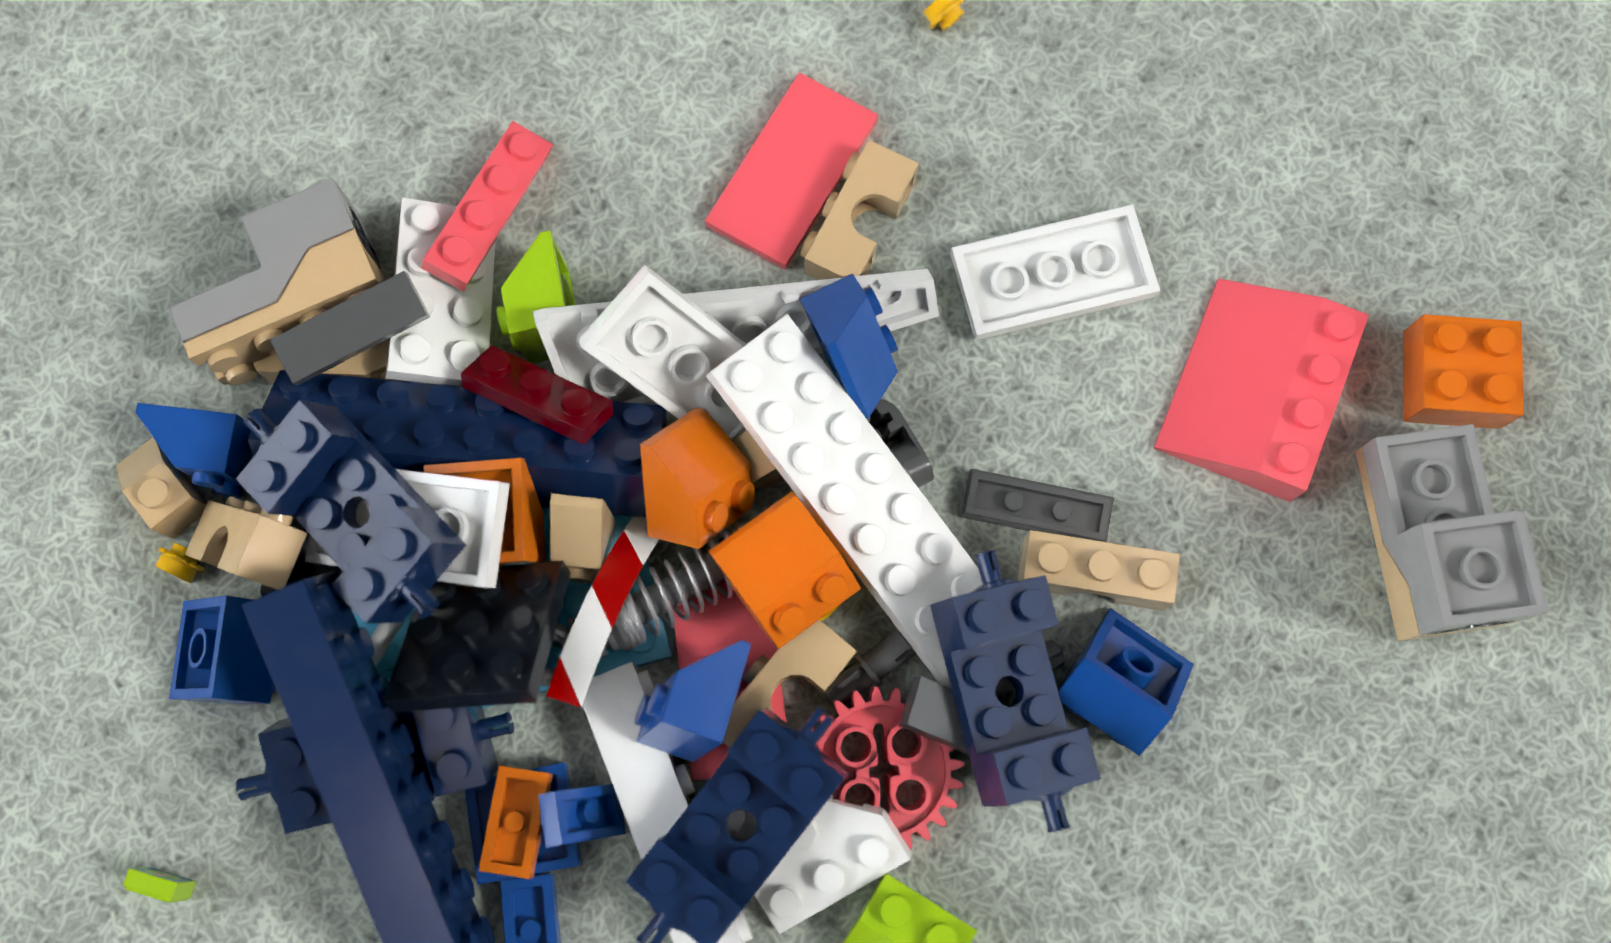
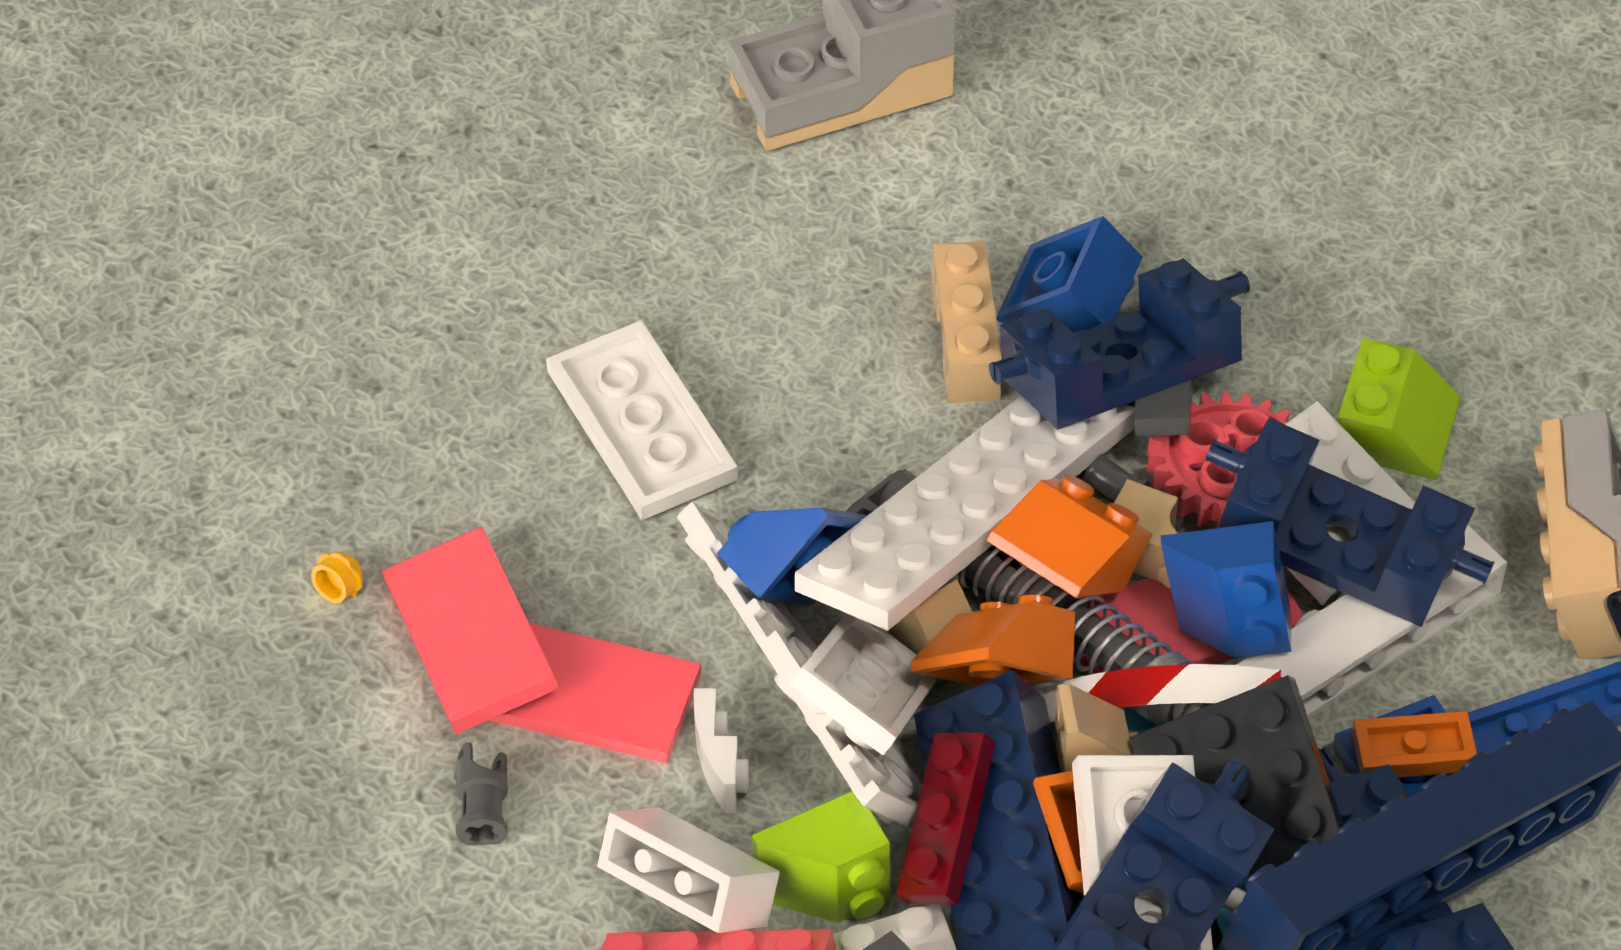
camera: 105 degrees left, 25 degrees down
(564, 195) = (688, 869): none -> white brick
(580, 815) = (1385, 693): blue plate -> none
(677, 254) = (718, 751): none -> white slope
(697, 76) = (481, 798): none -> dark grey piece
(859, 92) = (469, 630): none -> coral tile
(874, 182) = (666, 615): tan arch -> none
(1036, 506) = (910, 394): dark grey tile -> none
(1262, 386) = (722, 224): coral slope -> none
(1463, 371) = (663, 72): orange brick -> none

